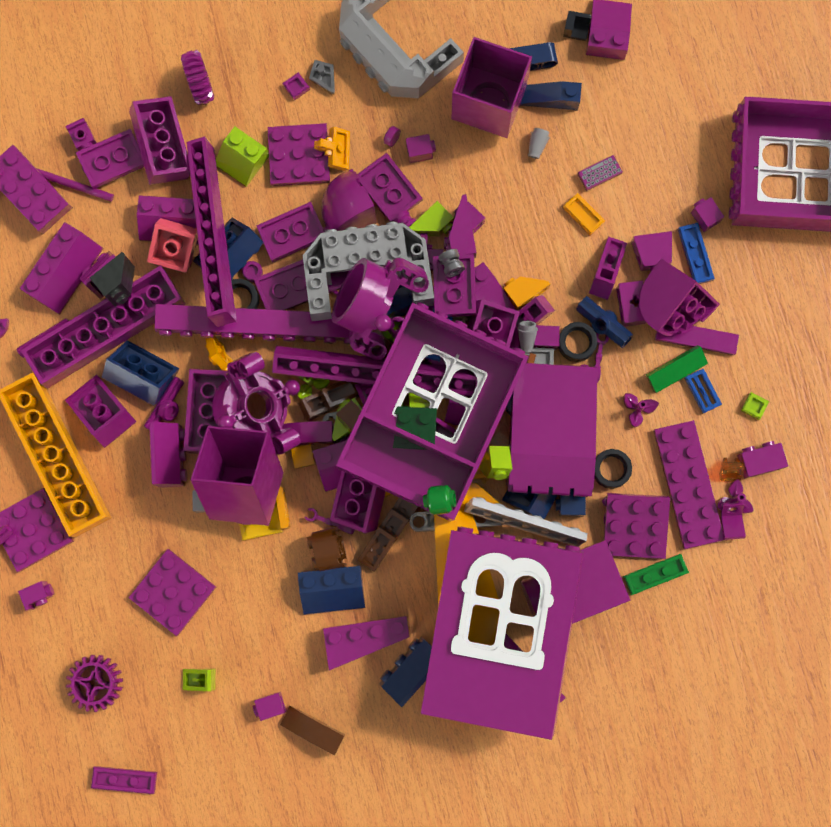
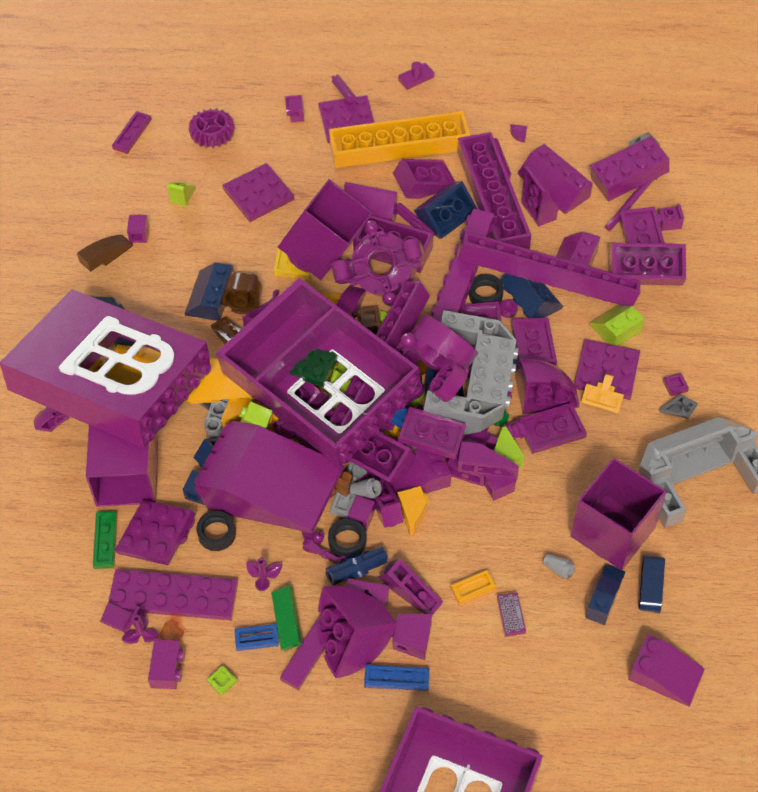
camera: 105 degrees right, 25 degrees down
(115, 279) = (524, 193): pearl dark grey slope -> none
(168, 410) = (407, 218): magenta tile -> none
(172, 245) = (551, 242): coral brick -> none
(197, 77) = (700, 304): magenta gear -> none
(217, 353) = (438, 259): light orange hinge -> none
(283, 509) = (291, 274): light orange tile -> none
(360, 639) = (160, 293): magenta wedge -> none
(392, 136) = (602, 443): magenta tile -> none
(420, 148) = (583, 462): magenta brick -> none
(440, 499) = (235, 339): green head -> none
(451, 262) = (452, 429): flat silver wheel -> none
(518, 519) = (192, 444): light grey plate -> none
(577, 25) = (678, 635): black panel -> none
(707, 214) = (434, 696): magenta brick -> none

